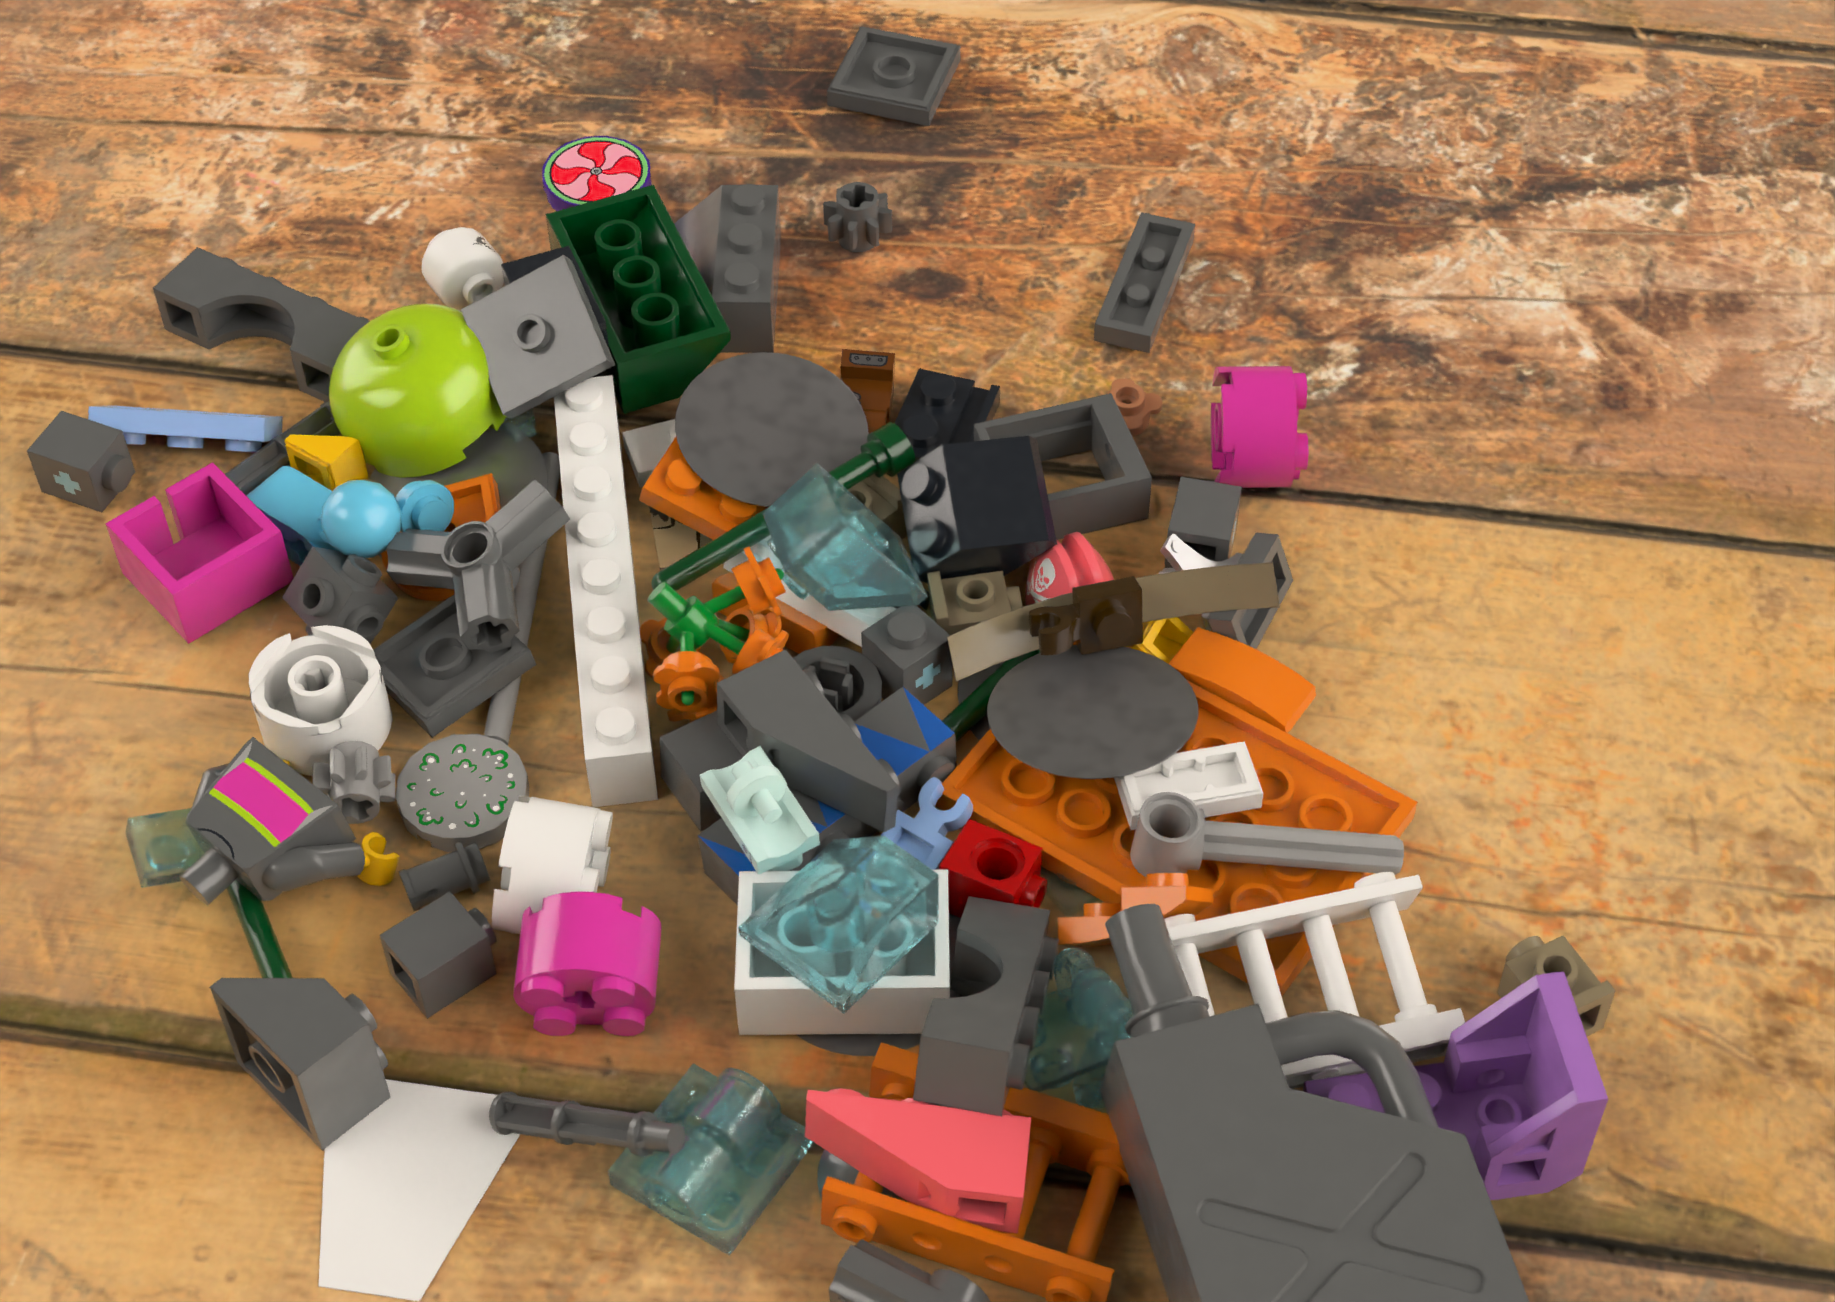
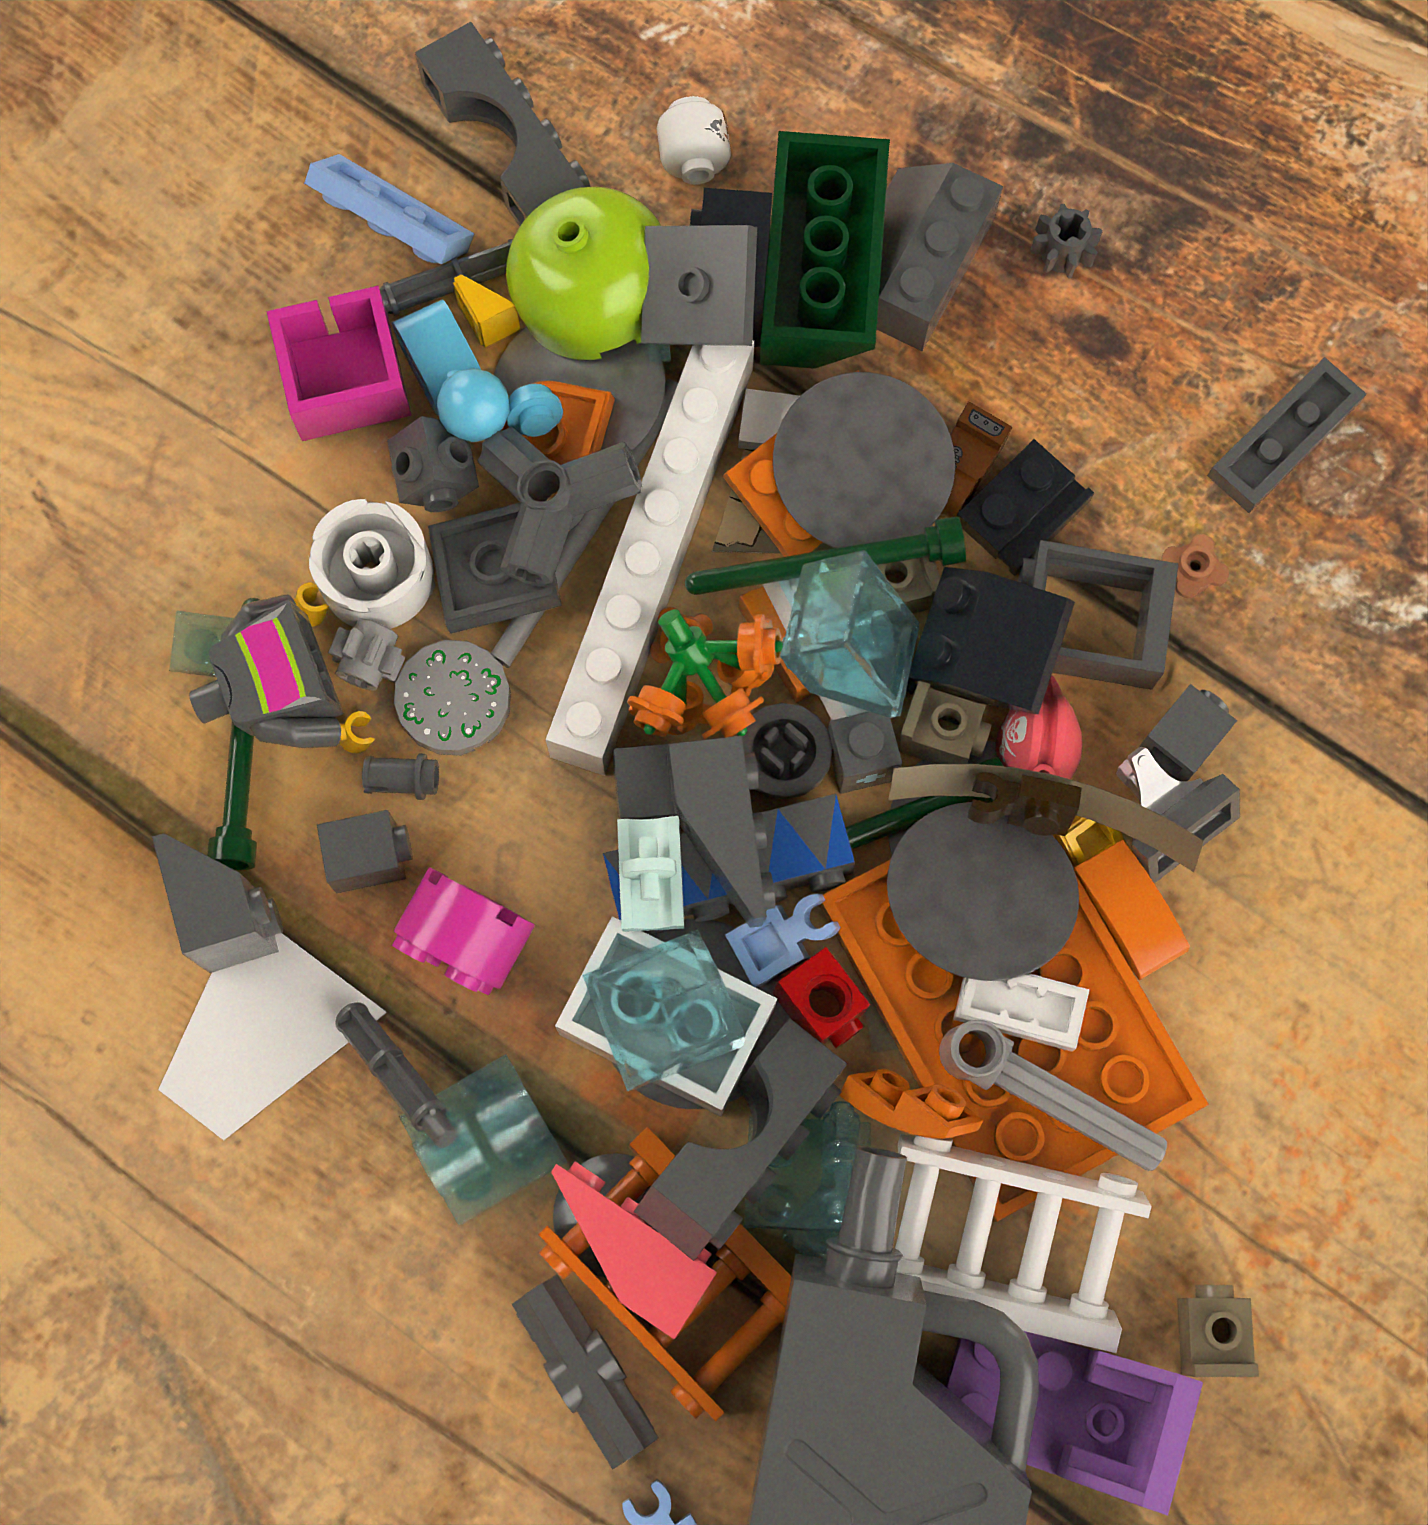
camera: 25 degrees right, 25 degrees up
(81, 461) = (289, 211): dark grey brick -> none
(548, 852) = (475, 824): white brick -> none
(593, 170) = (861, 80): tile -> none
(894, 75) = (1187, 80): dark grey plate -> none
(1257, 426) = (1288, 661): dark pink brick -> none

